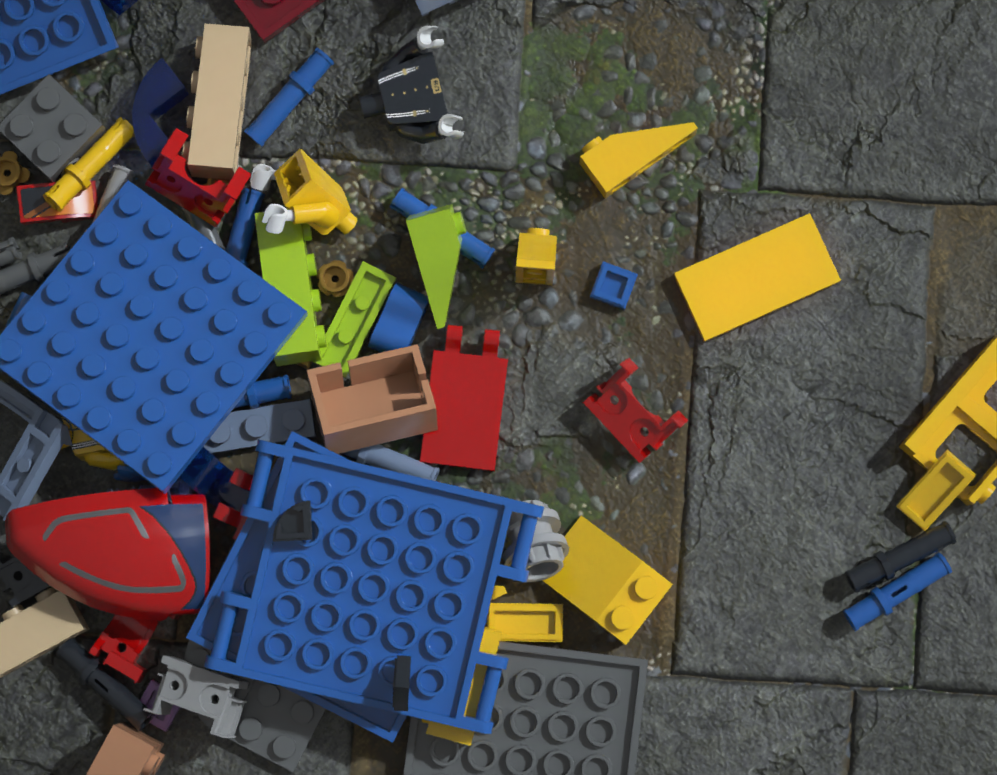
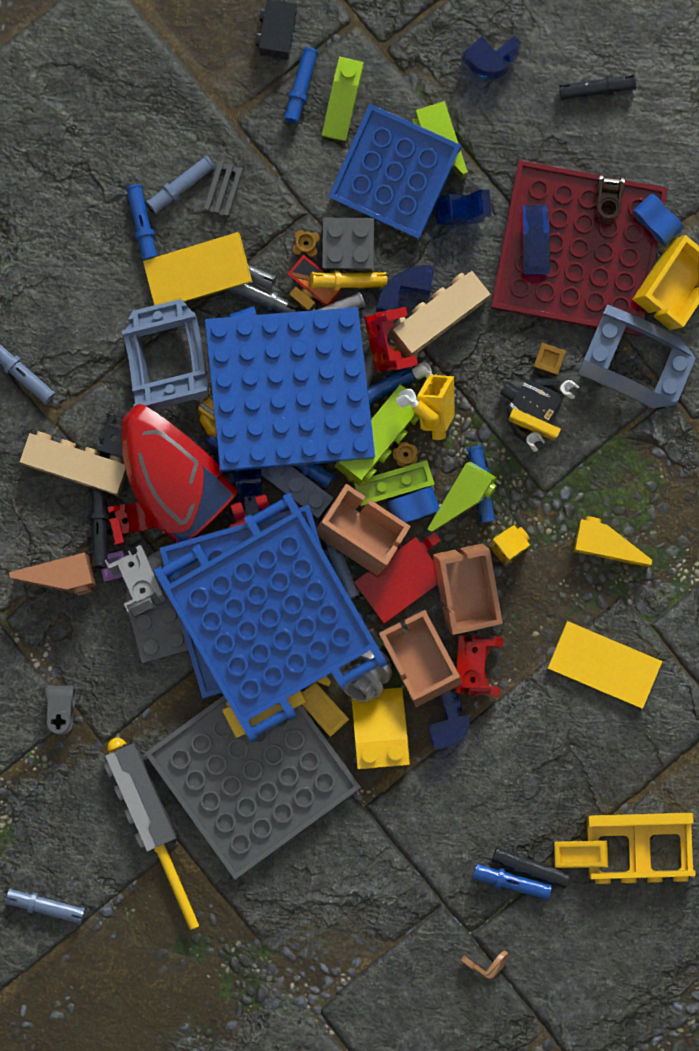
camera: 45 degrees right, 0 degrees up
(63, 231) = (303, 298): none -> pearl gold plate
(289, 96) = (475, 346): blue pin -> none
(295, 523) = (264, 549): black tile -> none
(377, 31) = (549, 359): none -> pearl gold plate
(401, 683) = (235, 674): black tile -> none
(432, 110) = (534, 424): none -> yellow tile
(542, 345) = (467, 589): none -> nougat piece
(570, 466) = (420, 658): none -> nougat piece
(613, 285) = (532, 596): blue tile -> none
(677, 504) = (454, 728): none -> clear blue brick
(974, 699) = (499, 963): none -> medium nougat piece

